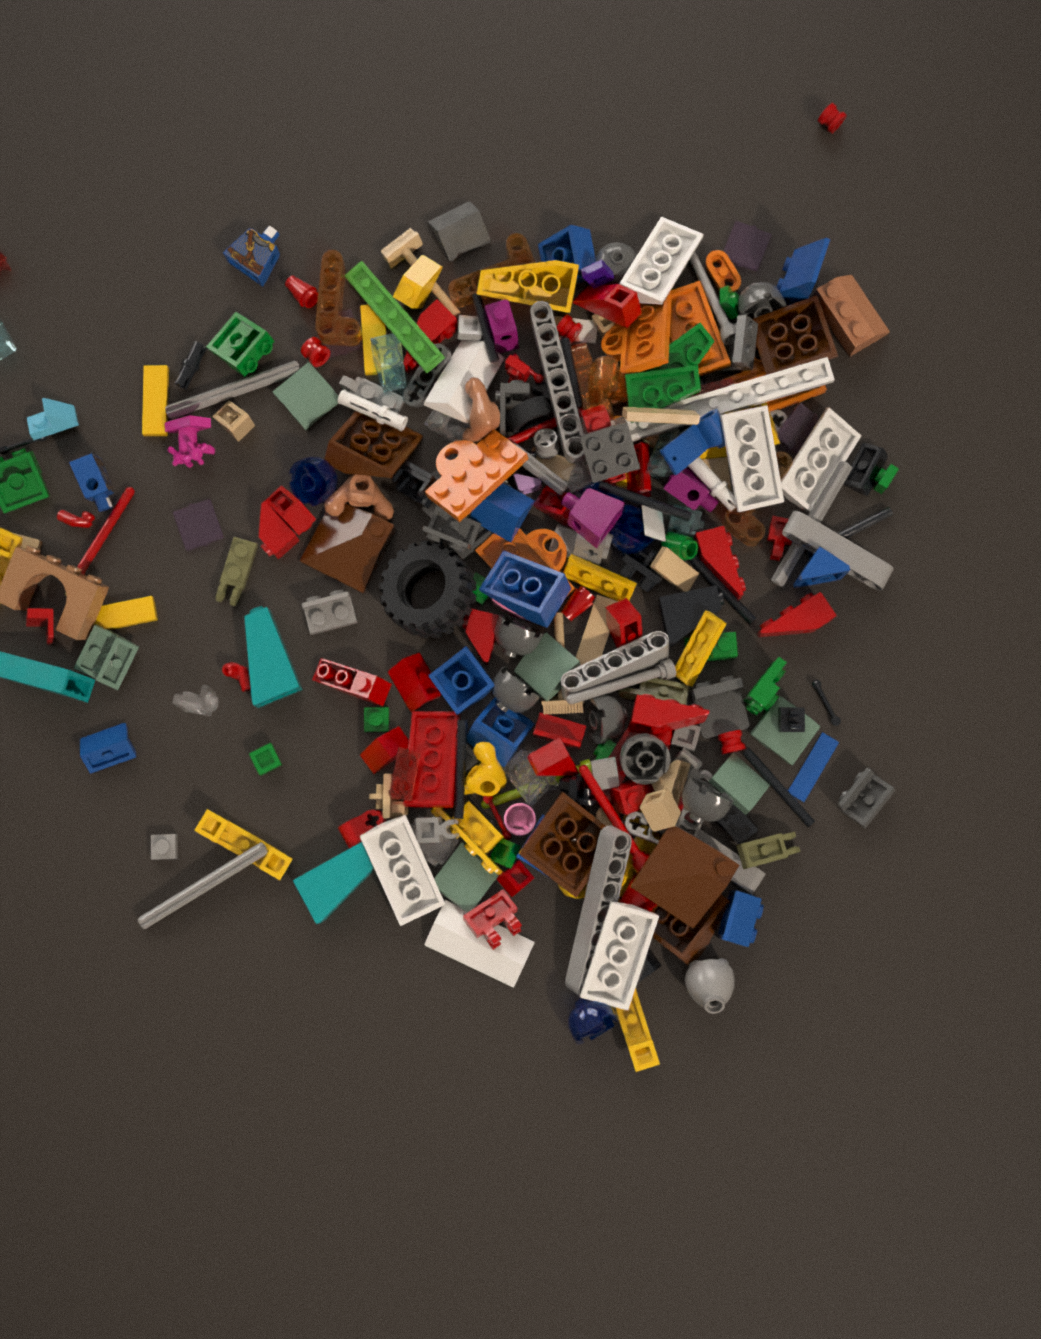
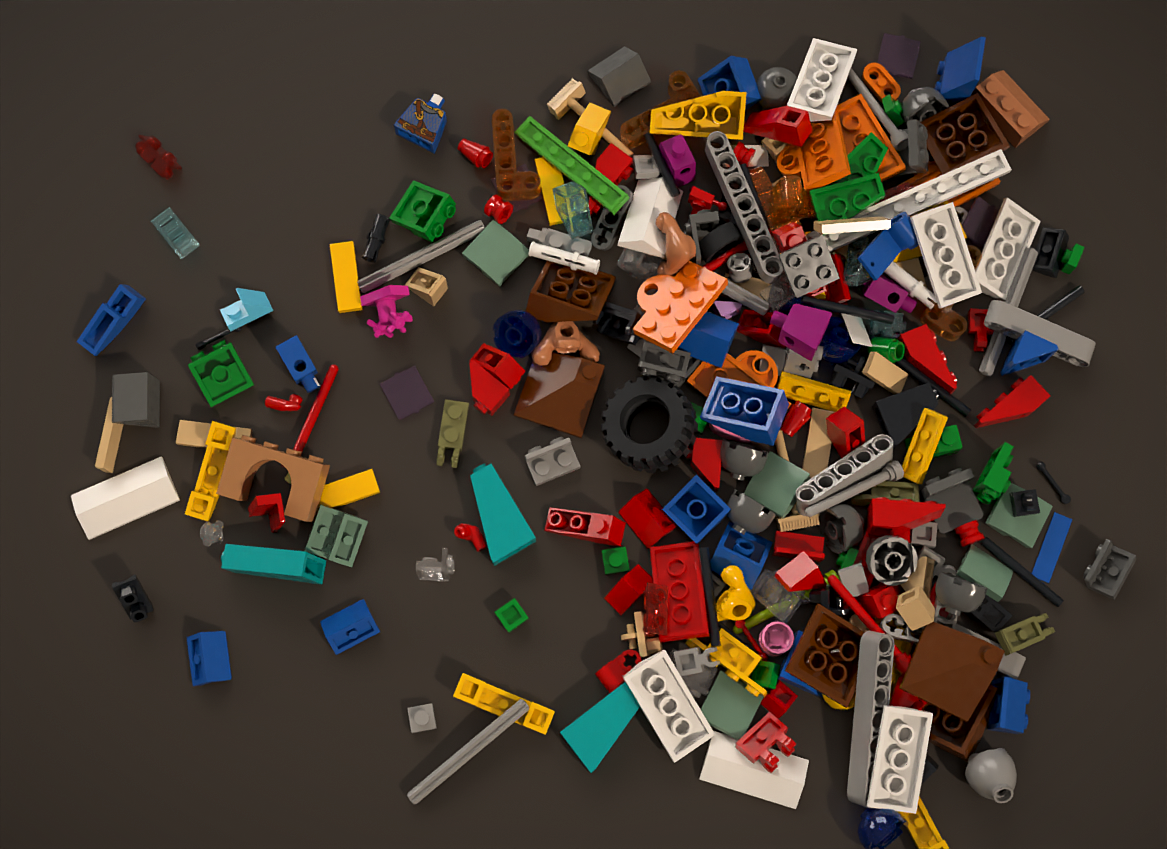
camera: 15 degrees left, 5 degrees down
(597, 274) = (763, 99): dark purple plate -> none

